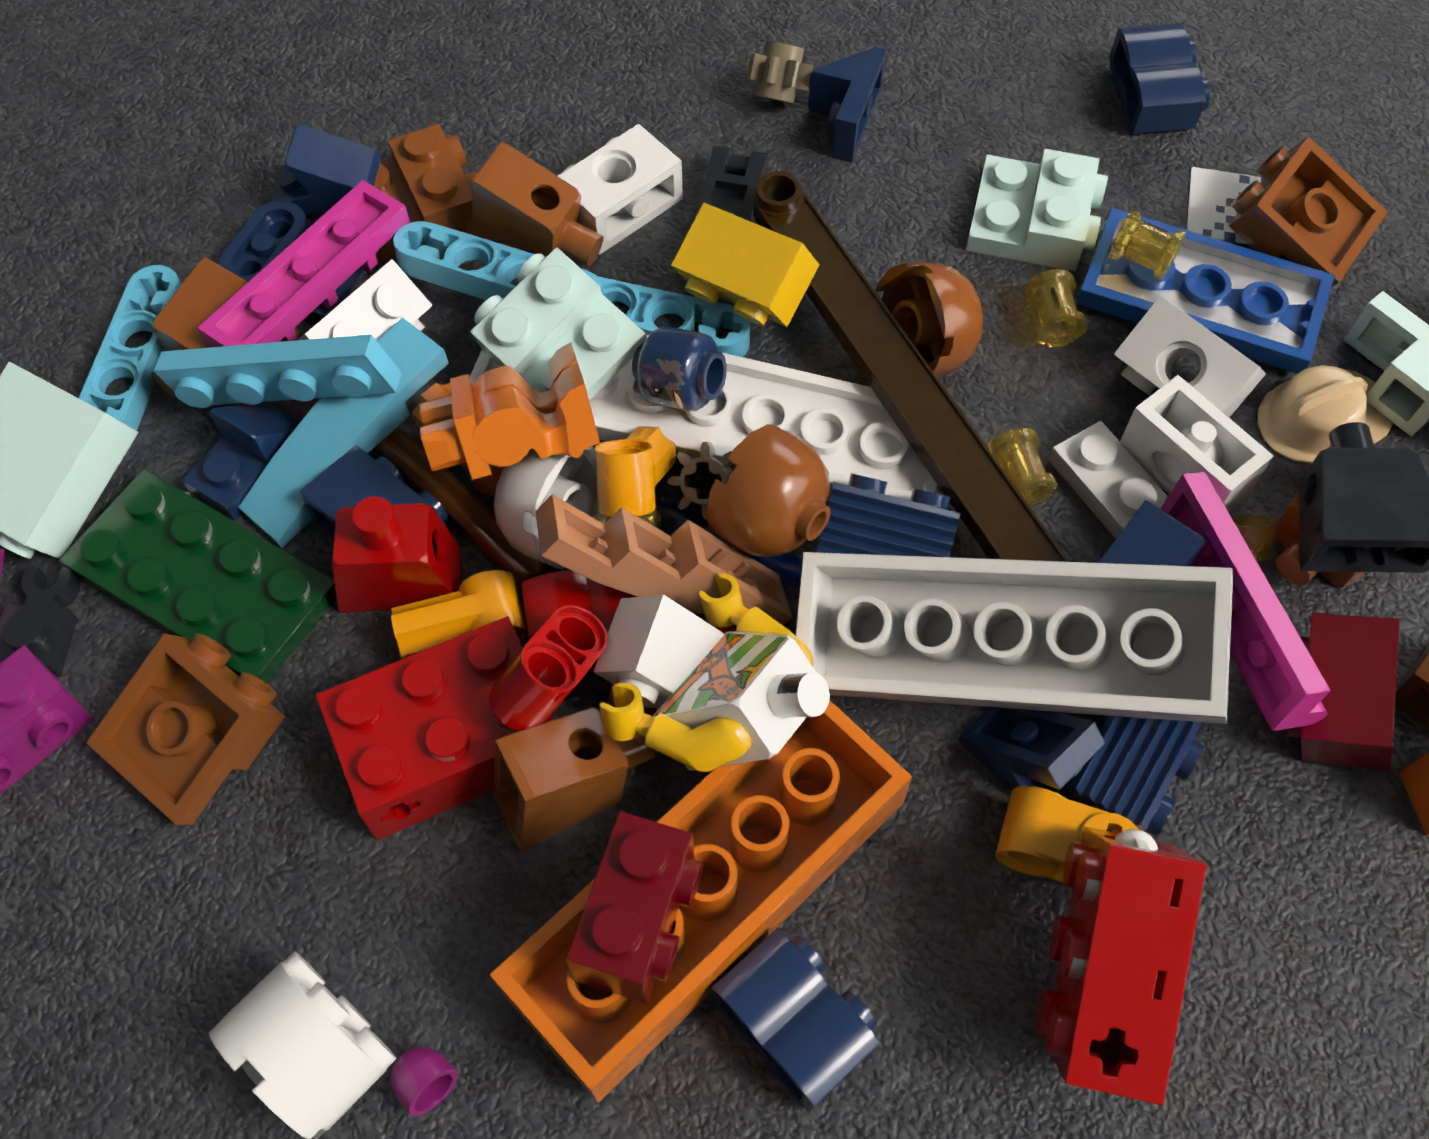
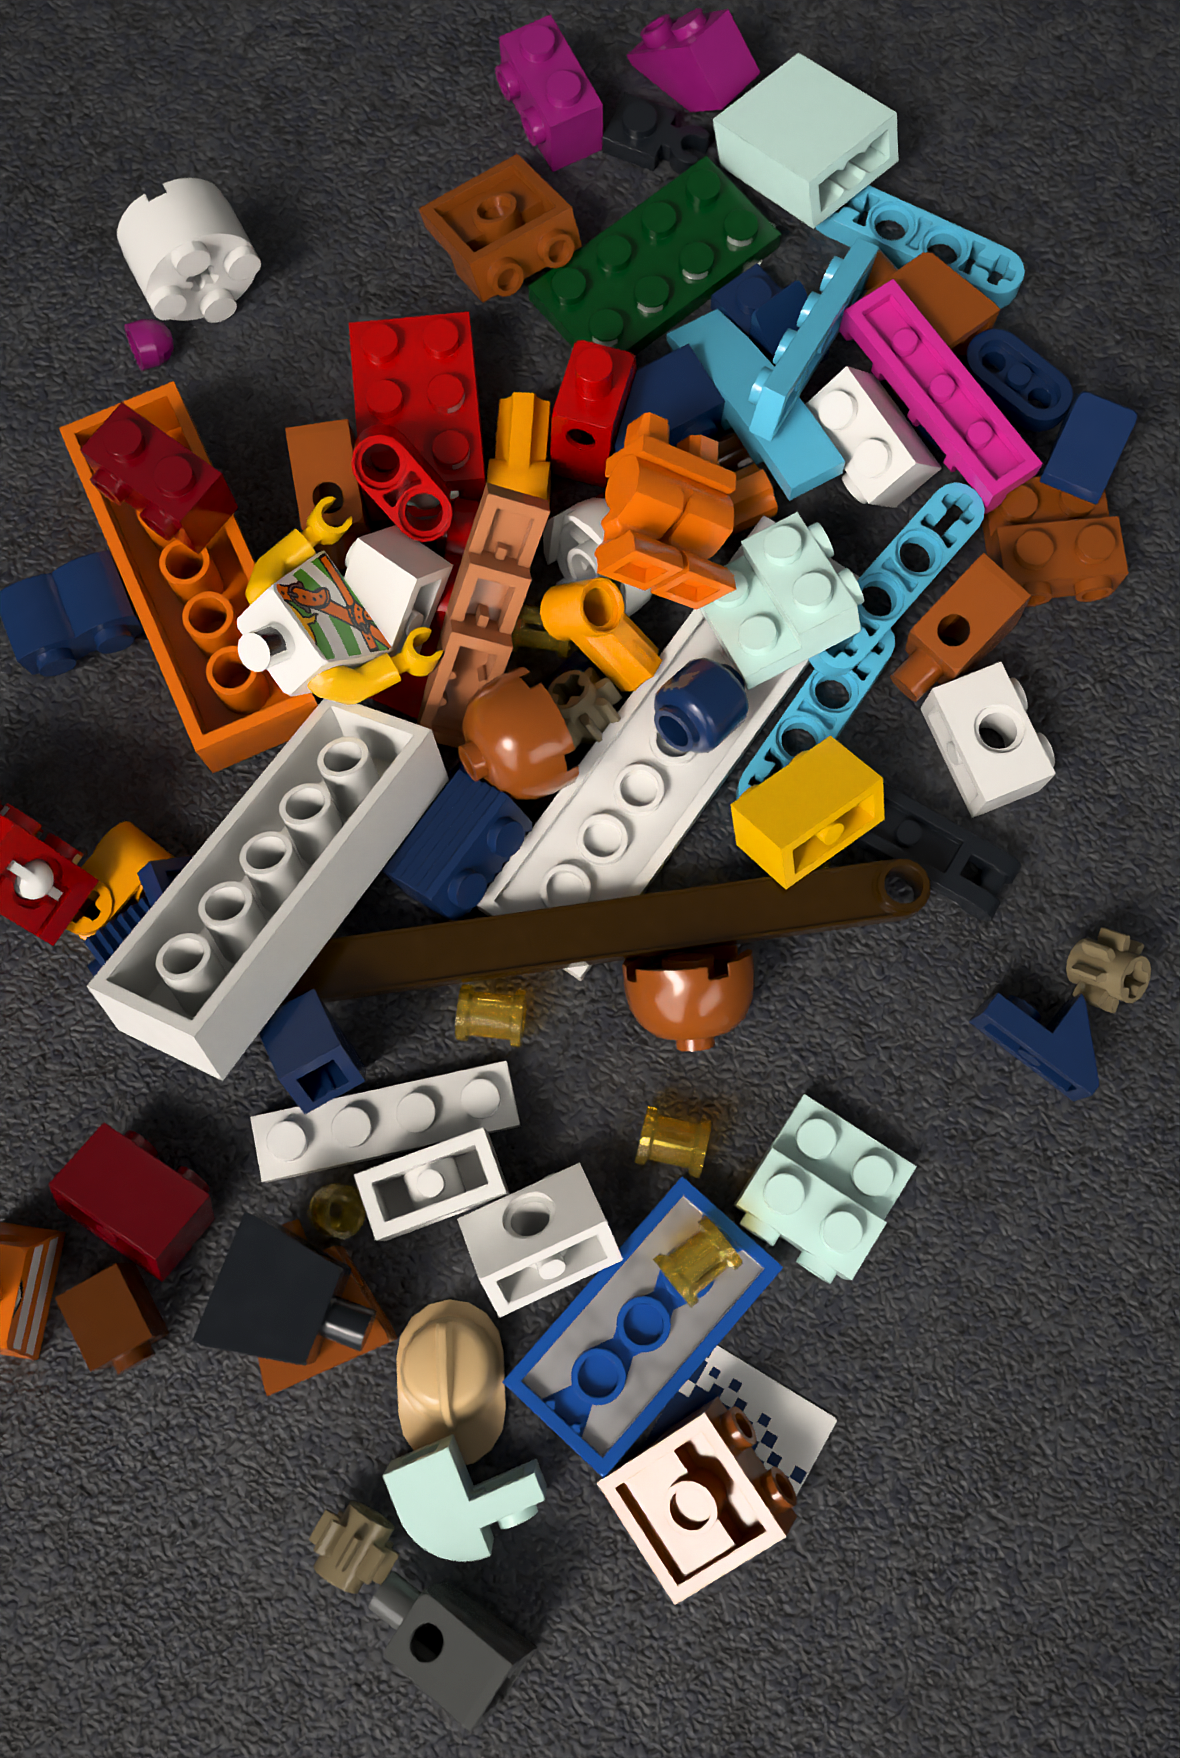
camera: 110 degrees right, 15 degrees up
(1158, 78) = (971, 1433): dark blue brick -> none
(1262, 636) = (240, 1122): dark pink hinge -> none

